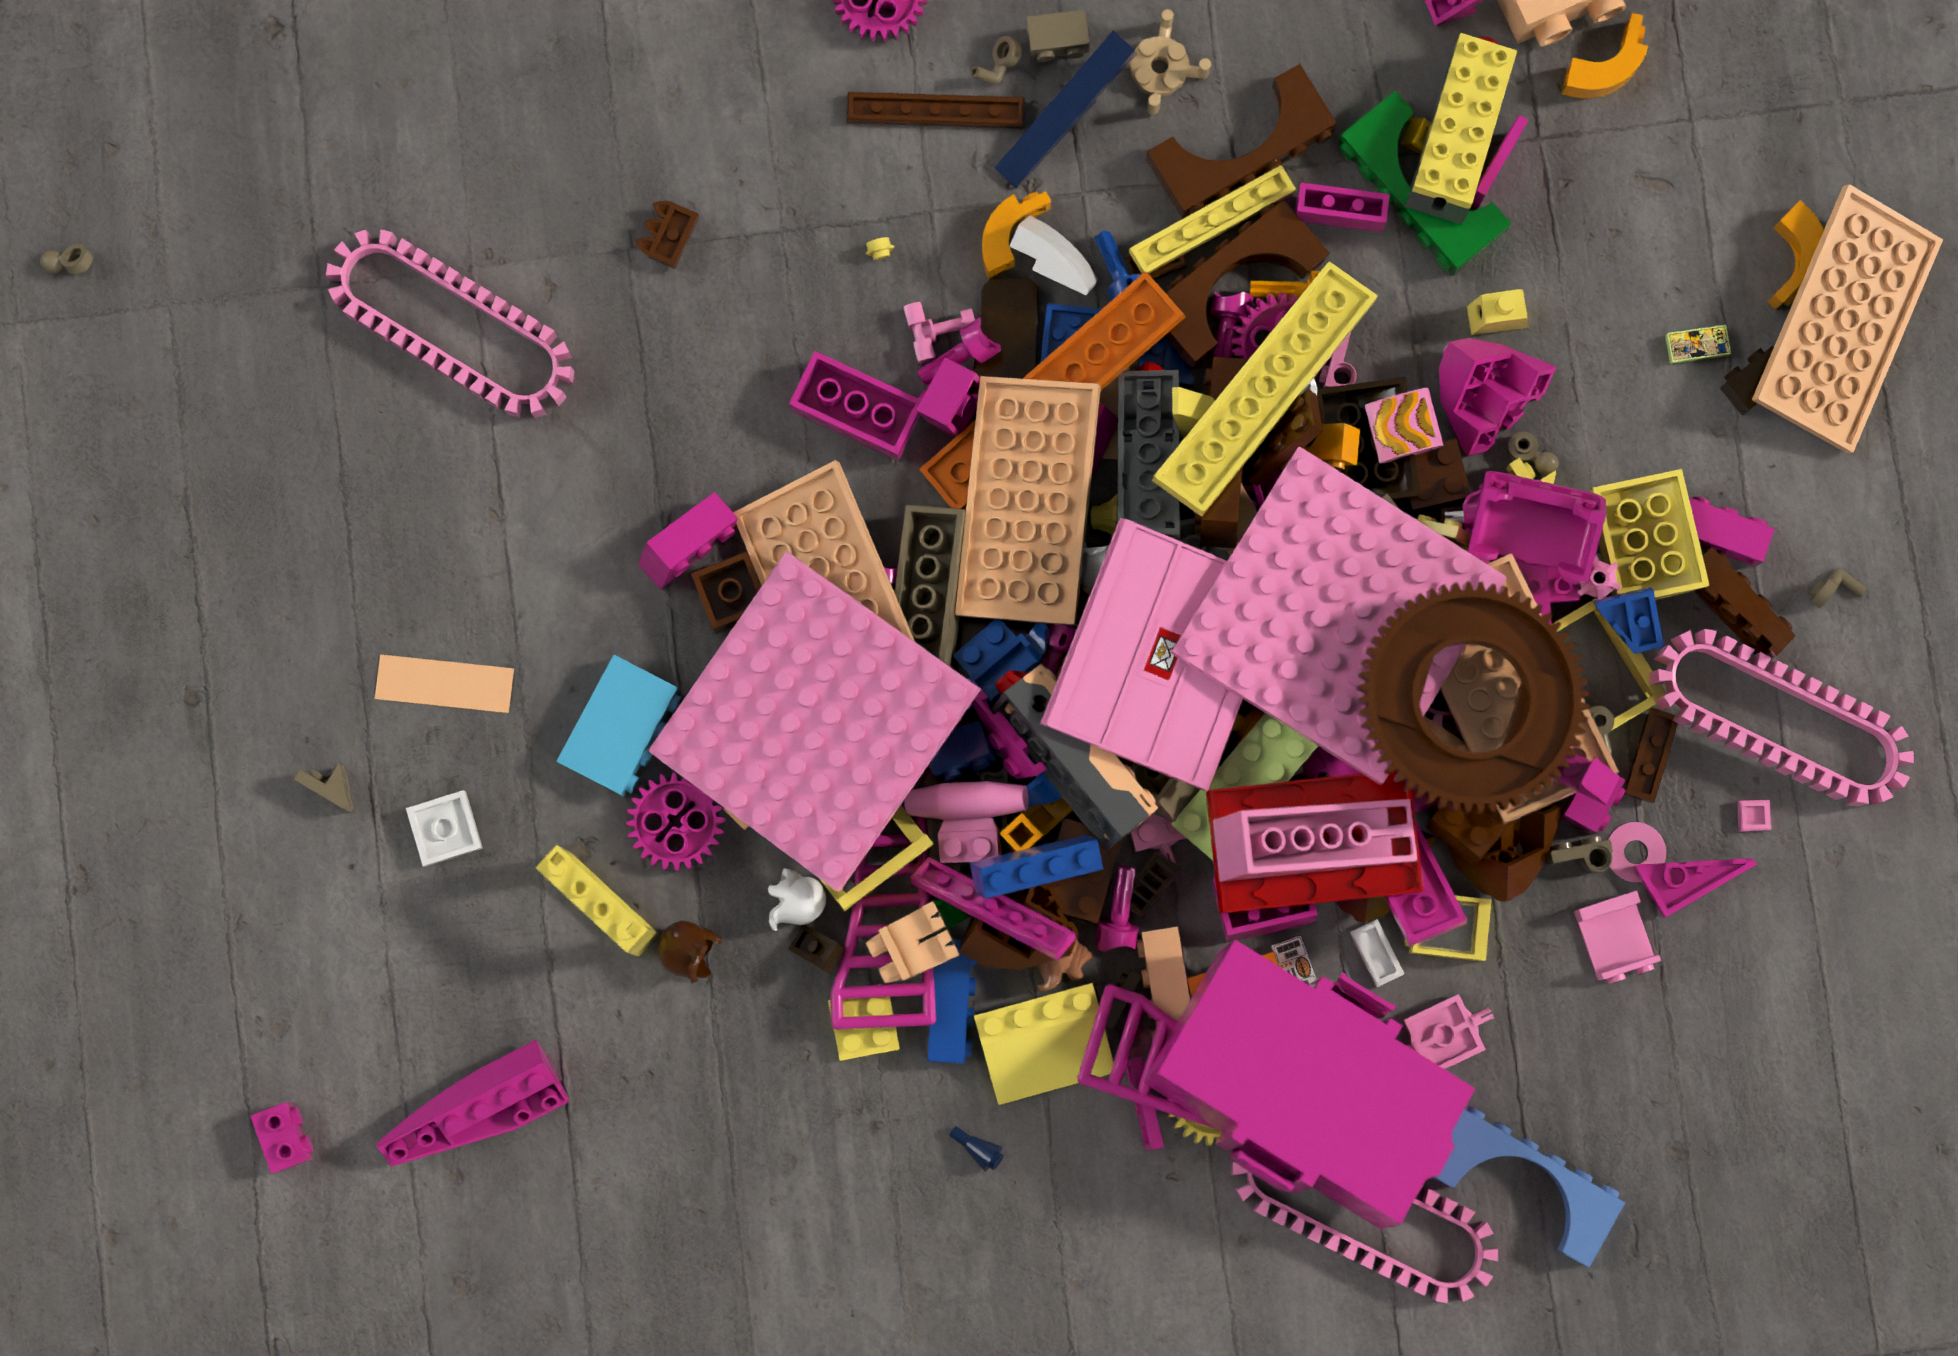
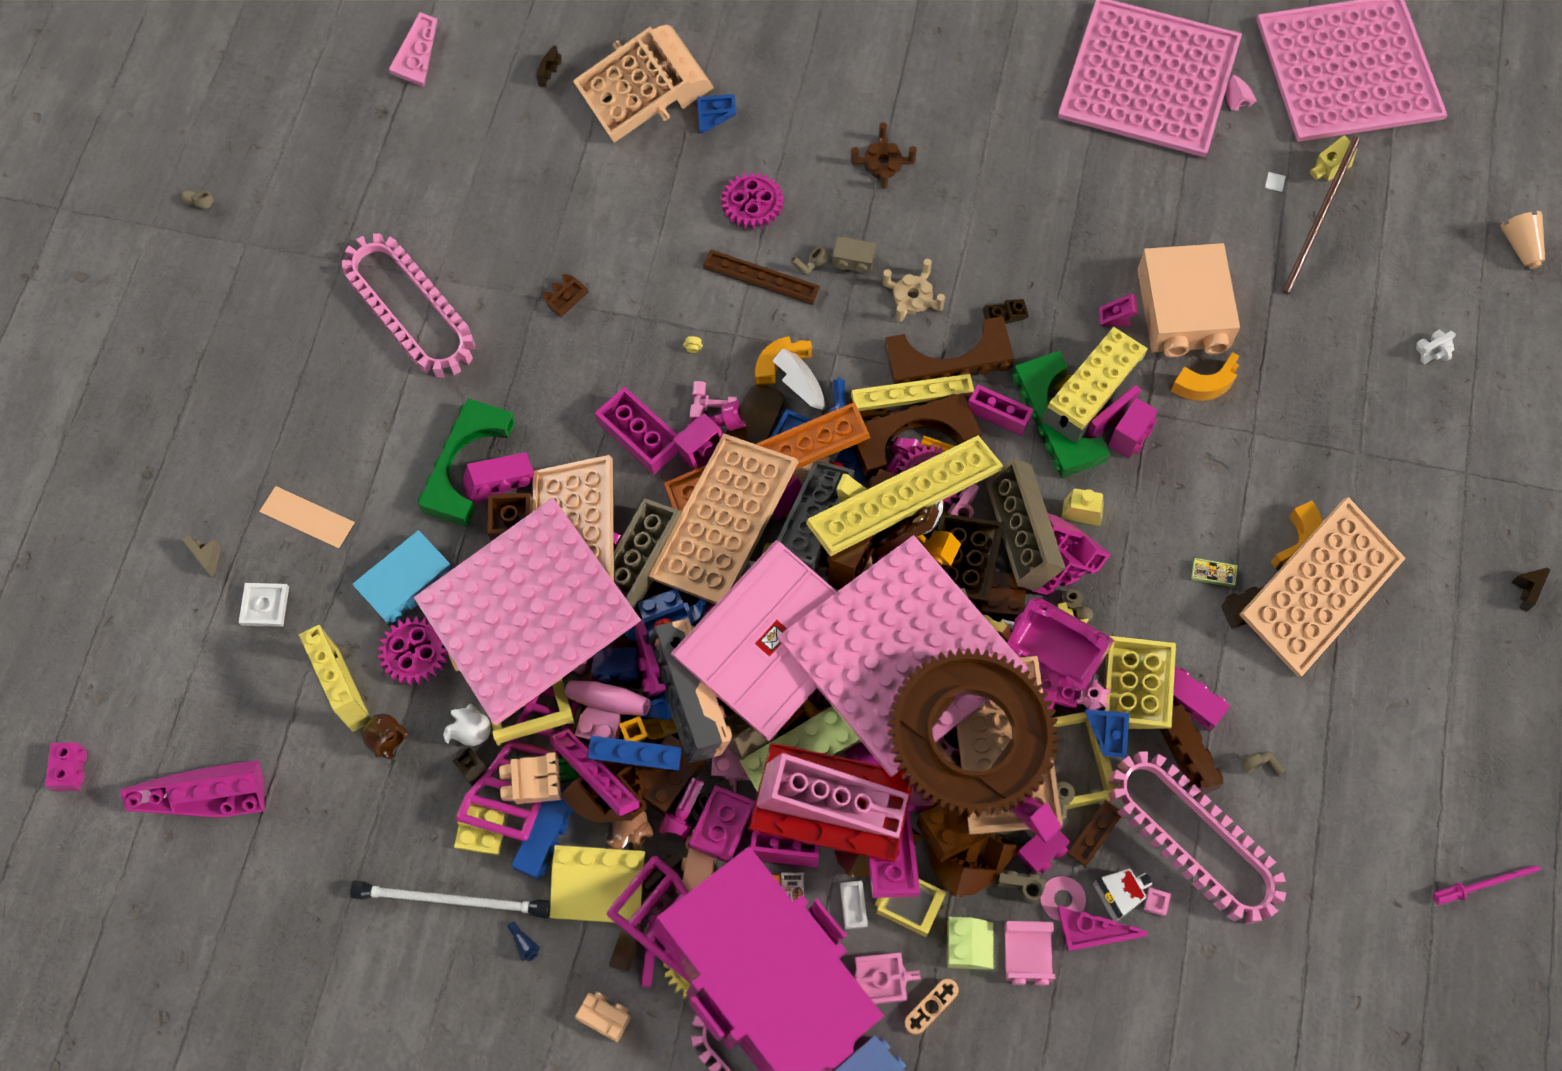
camera: 20 degrees right, 15 degrees down
(621, 469) = (474, 422): none -> green arch
(746, 1156) = (364, 890): none -> white hose
(1066, 109) = (843, 297): dark blue slope -> none
(1112, 1115) = (624, 951): none -> dark brown slope
(1117, 1204) = (603, 1017): none -> light nougat brick
(1177, 913) = (721, 824): none -> dark pink tile
(1300, 49) = (1011, 311): none -> dark brown slope
(1404, 425) = (992, 550): slope -> none
(1426, 353) = (1026, 525): none -> dark tan brick
(1515, 1070) = (948, 999): none -> light nougat beam
(1532, 174) = (1134, 428): none -> dark pink brick
(1539, 952) = (969, 943): none -> yellowish green slope
(1709, 820) = (1121, 892): none -> white torso

